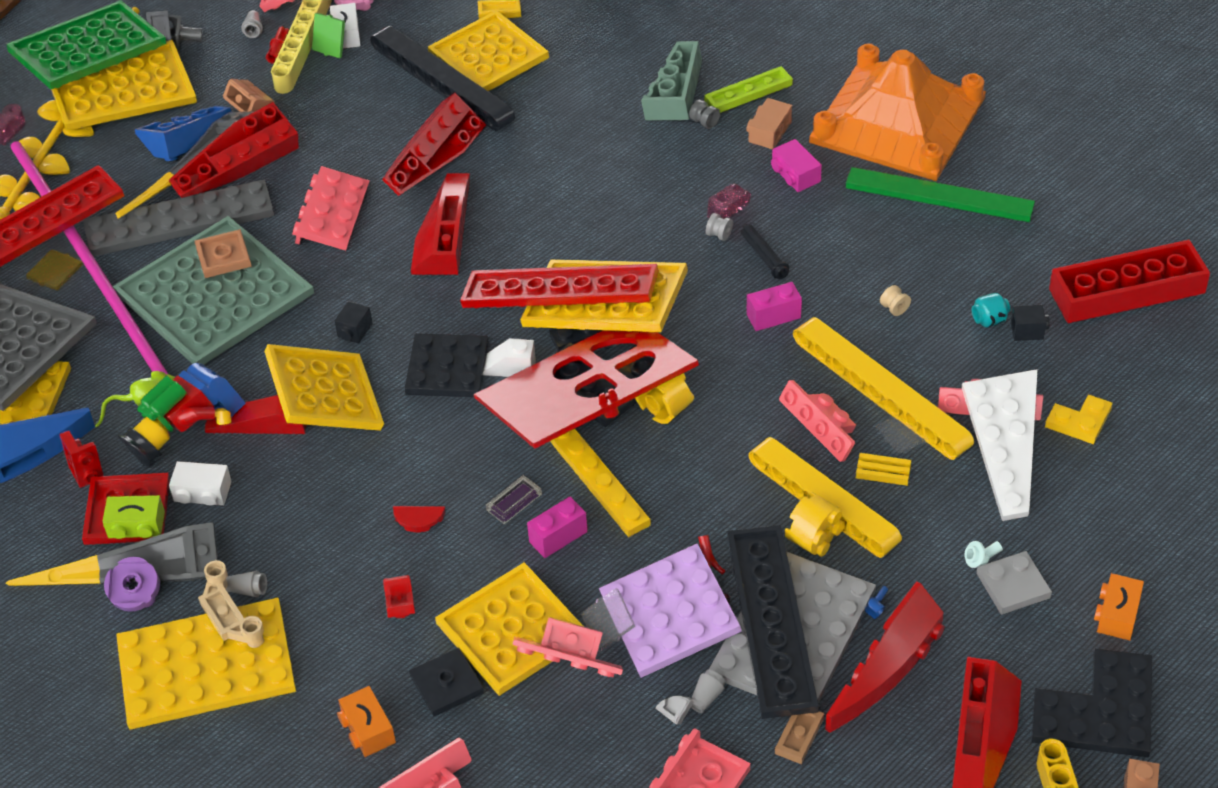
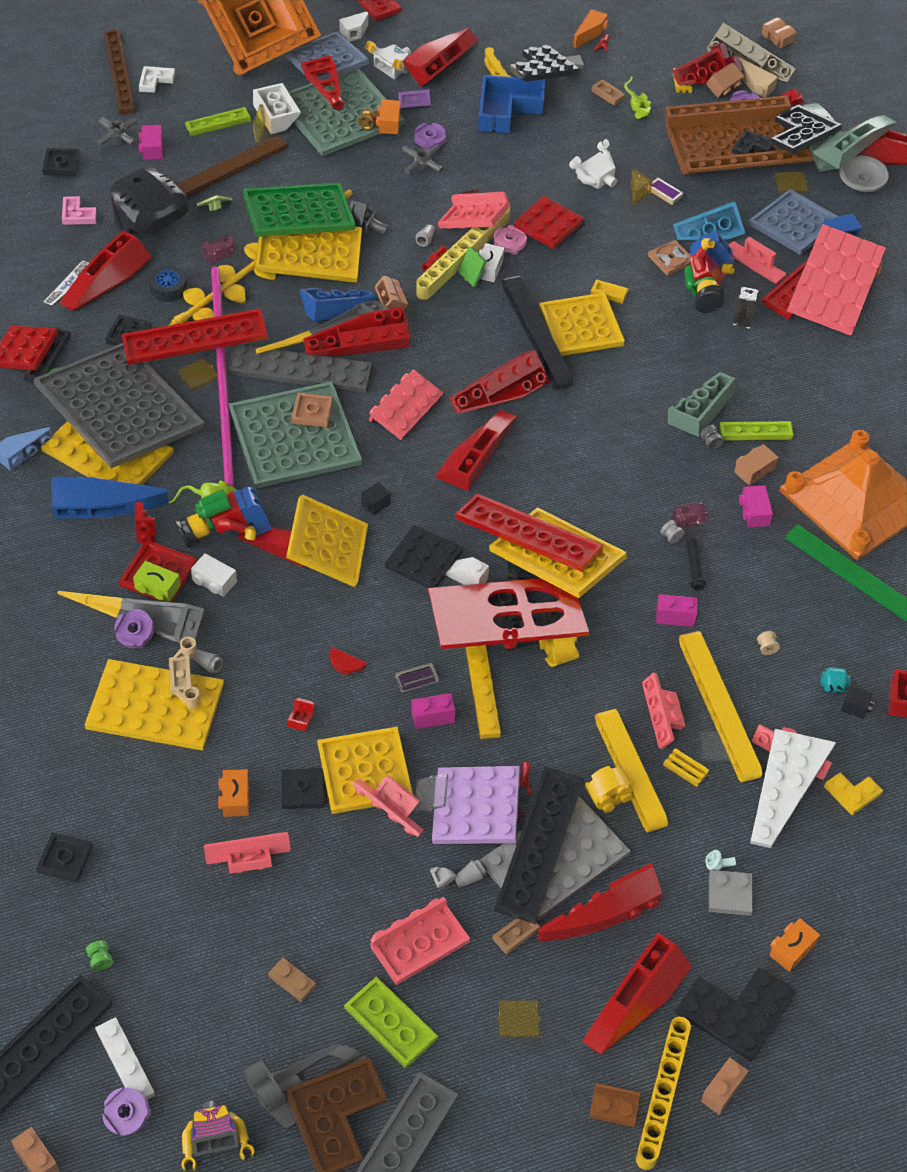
camera: 20 degrees right, 5 degrees up
(874, 606) = (620, 866): blue hand -> none

